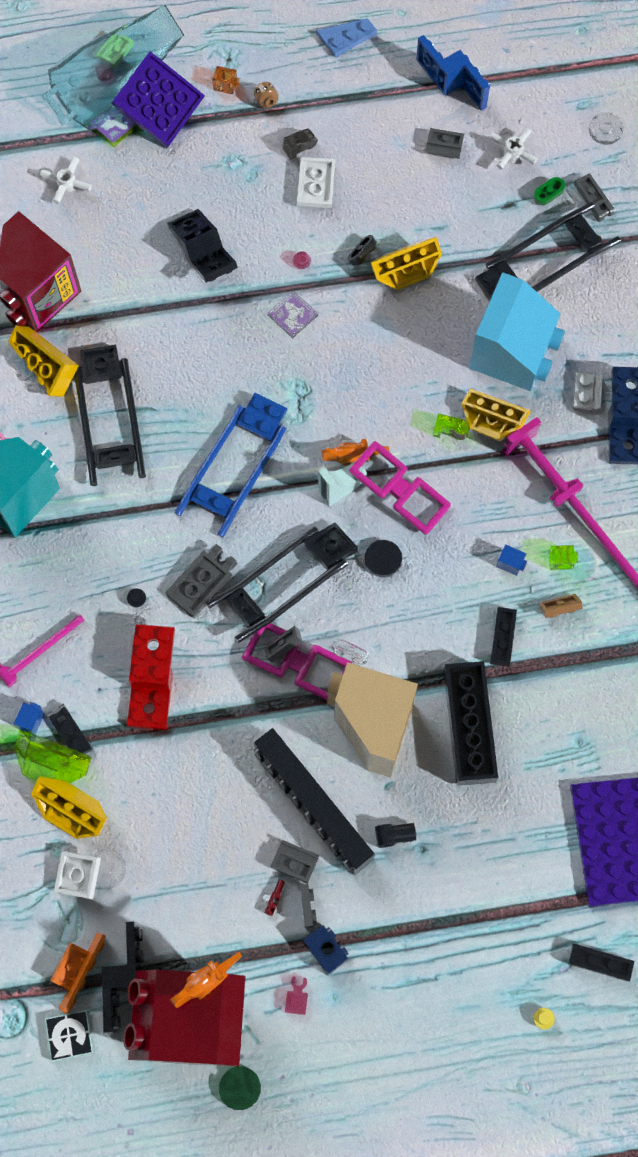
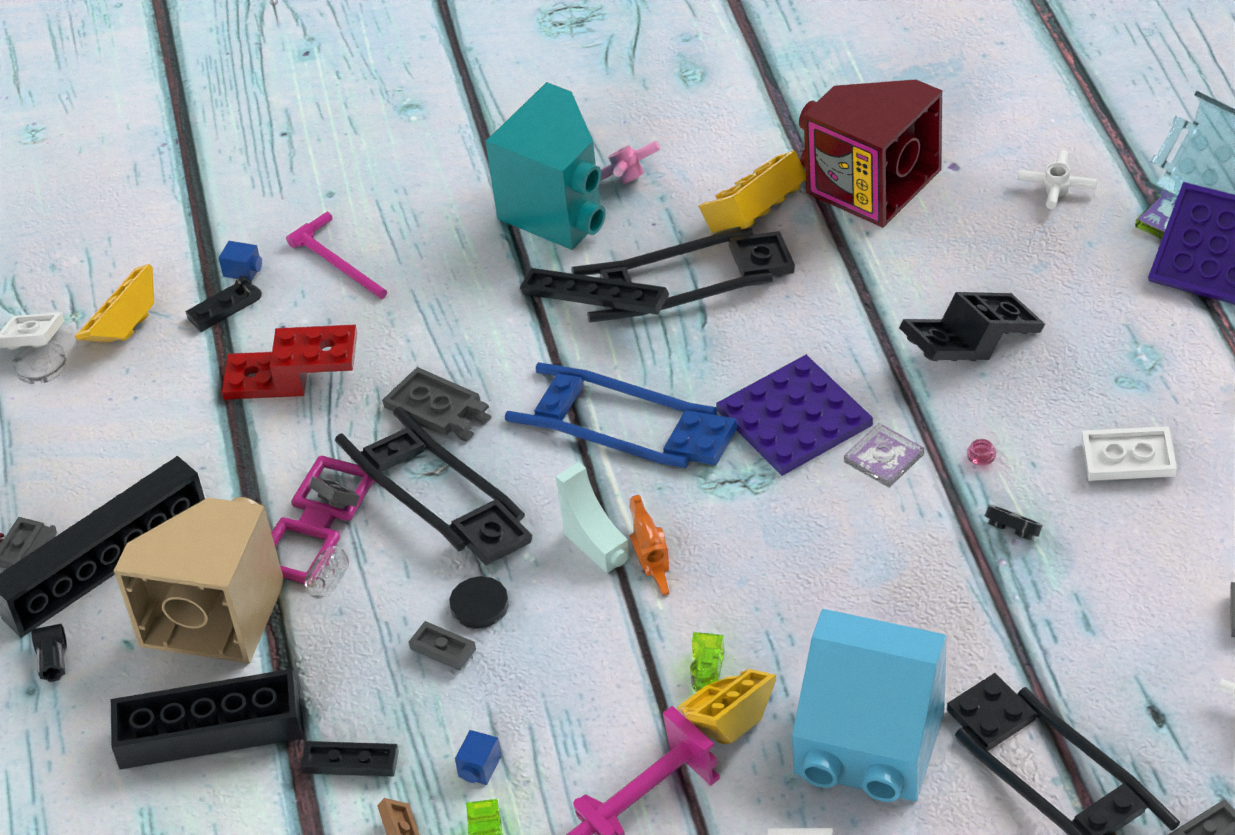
camera: 90 degrees right, 25 degrees down
(48, 759) = (184, 286): clear neon green wedge -> none
(121, 469) = (594, 291): none -> black plate
(136, 597) = (409, 341): black plate -> none
(249, 361) = (794, 414): none -> dark purple plate
(299, 142) = (1197, 423): clear smoke leg -> none
(400, 488) = (589, 601): dark pink bar -> none
(408, 264) = (991, 572): yellow wedge -> none
(419, 580) = (442, 645): none -> dark grey plate
(546, 190) = (1198, 766): green plate -> none

